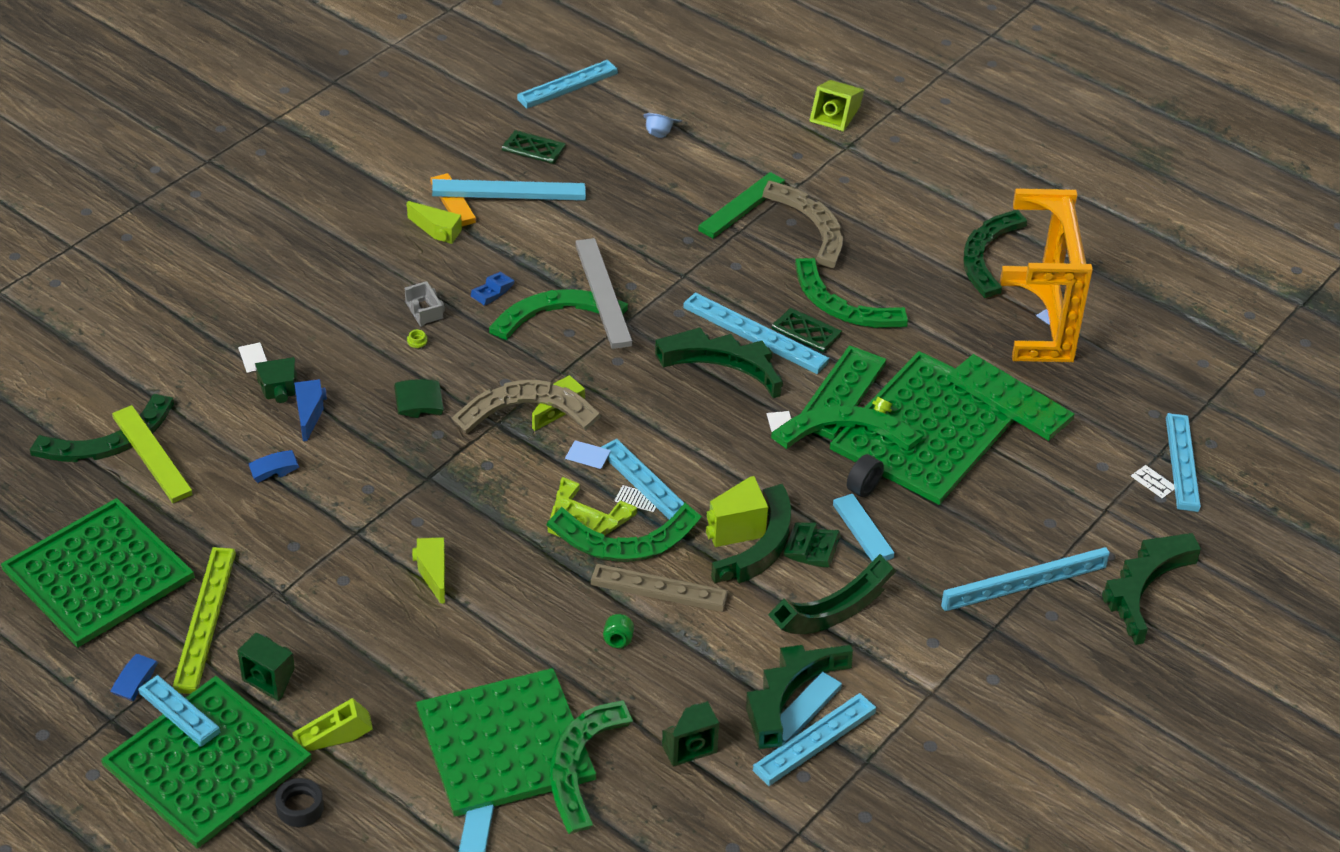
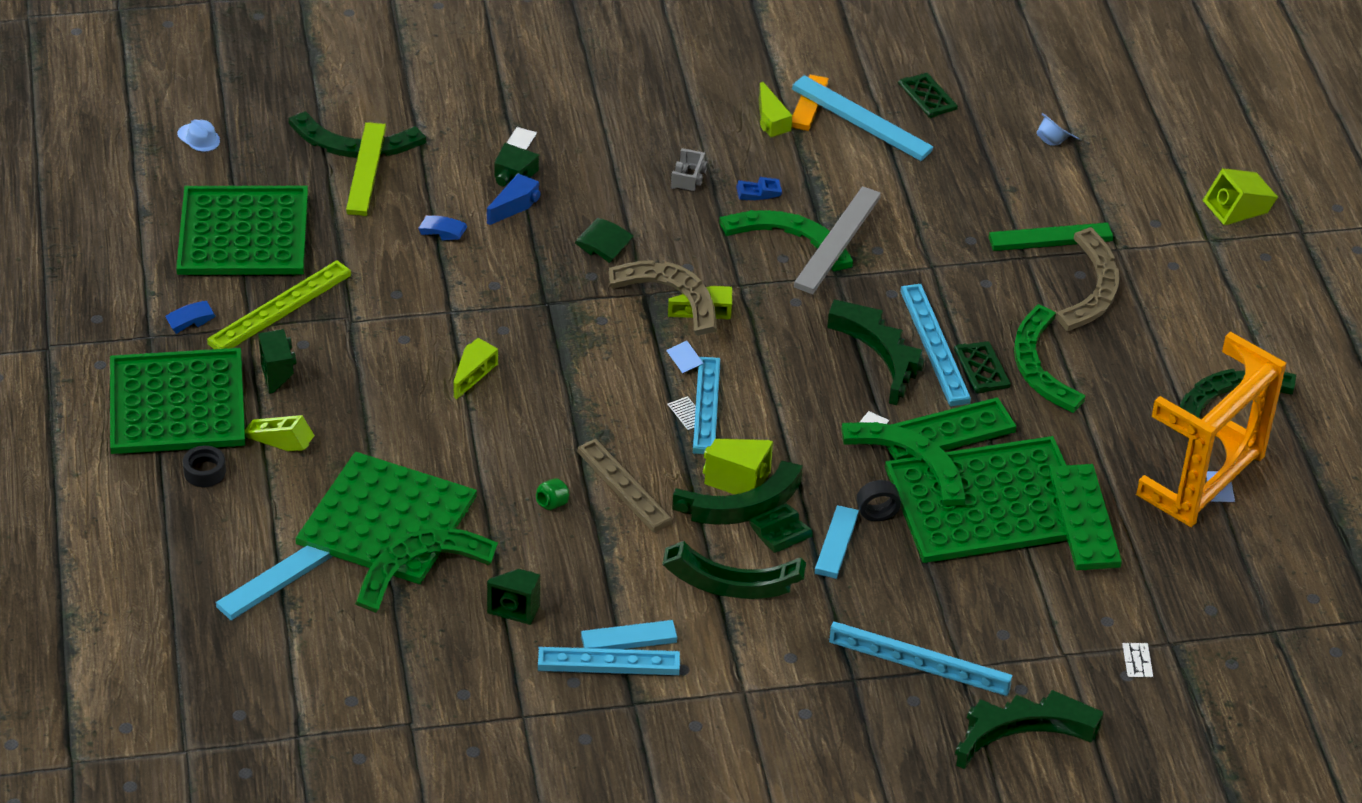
camera: 40 degrees right, 0 degrees up
(179, 710) = (190, 355): medium azure tile -> none
(417, 339) = (654, 195): lime plate -> none
(567, 84) = (1020, 57): medium azure tile -> none
(588, 516) = (618, 402): lime wing -> none
(622, 548) = (634, 443): green plate -> none
(779, 684) = (623, 605): dark green arch -> none
(882, 405) = (960, 456): lime plate -> none
(1182, 462) = (1182, 660): medium azure tile -> none

